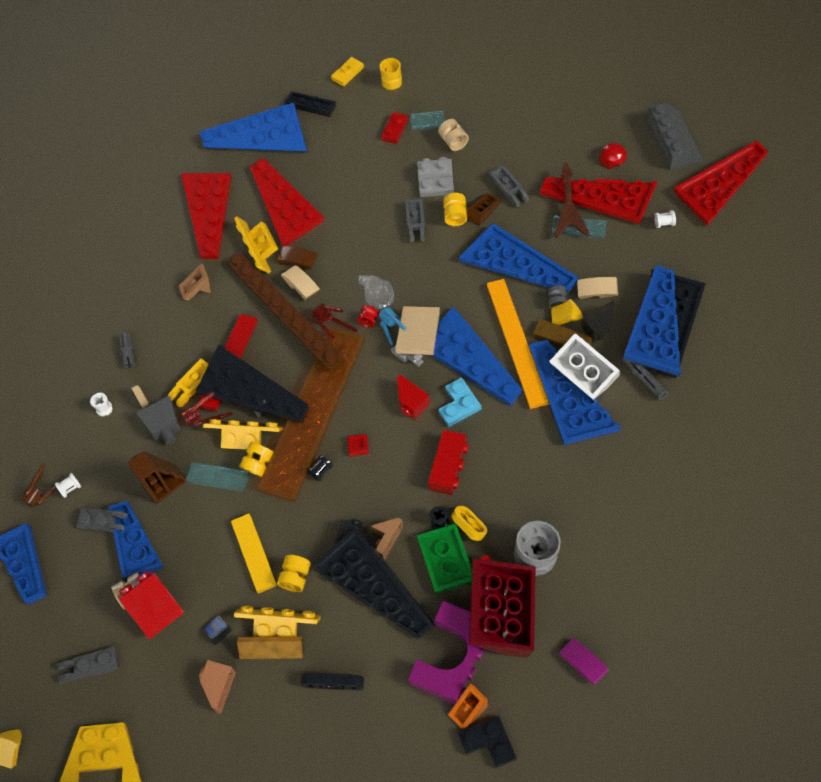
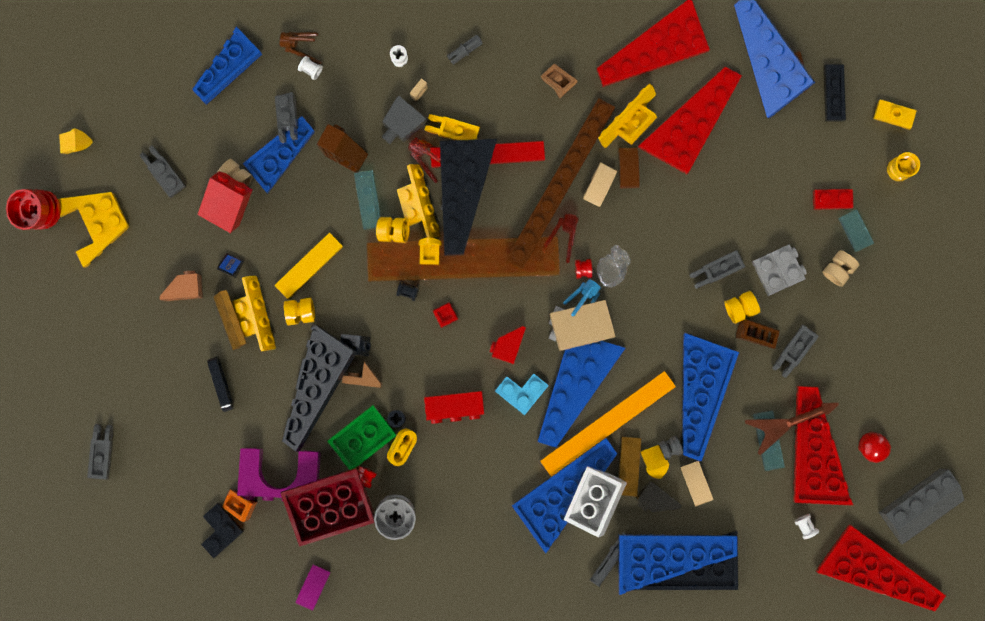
camera: 60 degrees right, 25 degrees up
(291, 433) = (429, 251): none -> yellow tile

